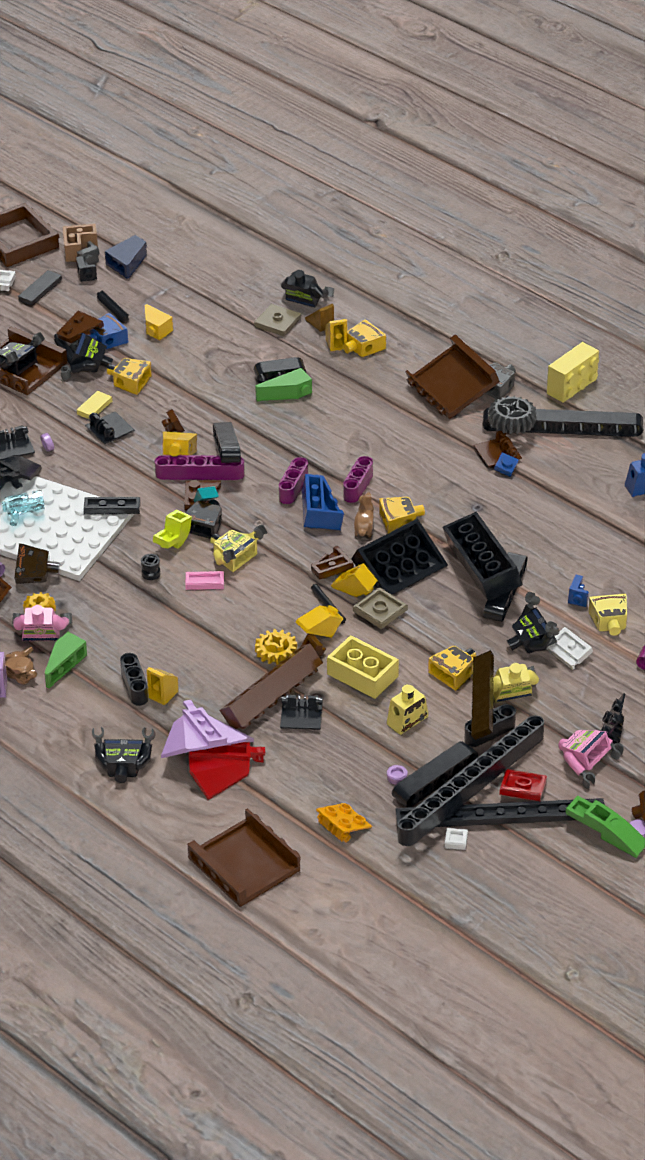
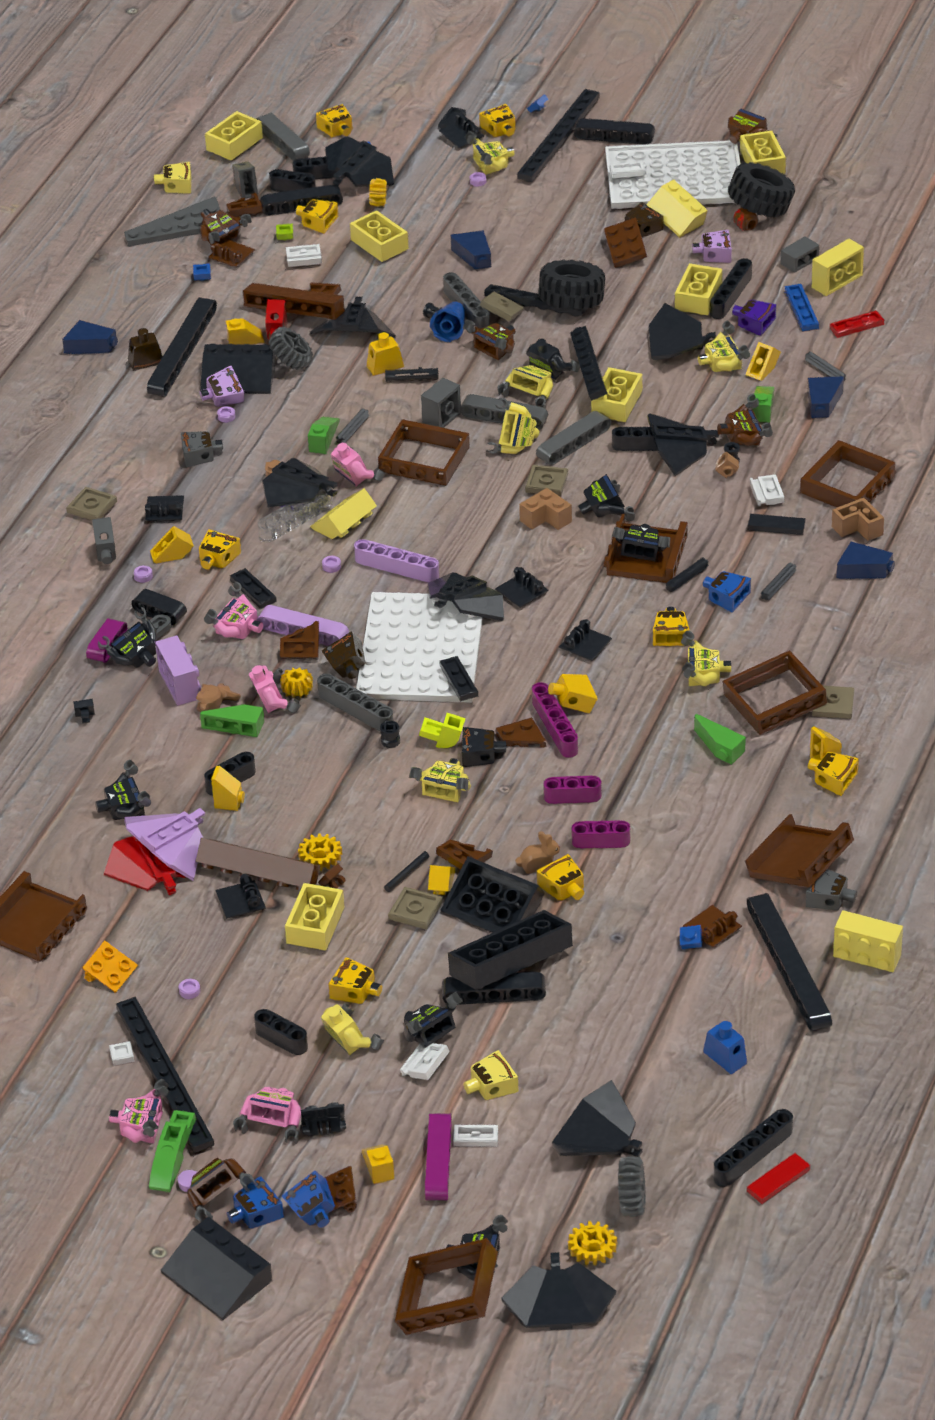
camera: 70 degrees right, 0 degrees up
(22, 503) = (422, 618): clear light blue piece -> none
(47, 442) = (534, 608): lavender tile -> none
(78, 324) = (713, 564): reddish brown wing -> none
(85, 271) = (820, 540): black bracket -> none
(86, 357) = (677, 587): black torso -> none
(90, 253) = (844, 535): dark grey bracket -> none
(93, 577) = (353, 701): none -> dark grey beam
(94, 404) = (614, 621): light yellow tile -> none
(157, 322) = (765, 617): yellow slope -> none
(173, 422) = (615, 680): reddish brown tile -> none
(189, 369) = (703, 663): none -> torso
(204, 580) = (396, 778): bright pink tile -> none
(206, 494) = (504, 733): teal slope -> none
(226, 442) = (590, 720): black beam -> none
(248, 320) = (783, 712): none -> reddish brown window
(274, 368) = (742, 723): beam -> none
(304, 289) = (884, 700): black torso -> none
(319, 506) = (540, 814): blue wedge -> none
(320, 621) = (360, 866): yellow slope -> none
(321, 317) = (851, 731): pearl gold slope -> none
(407, 709) = (271, 965): light yellow torso -> none
(434, 774) = (196, 1012): black beam -> none
(470, 781) = (190, 1035): black beam -> none
(482, 695) = (303, 1007): dark brown tile -> none
(512, 415) = (739, 910): dark grey gear -> none
(523, 785) = (208, 1078): red tile -> none
(553, 840) = (141, 1115): none -> torso
(577, 594) = (514, 1042): blue bracket -> none

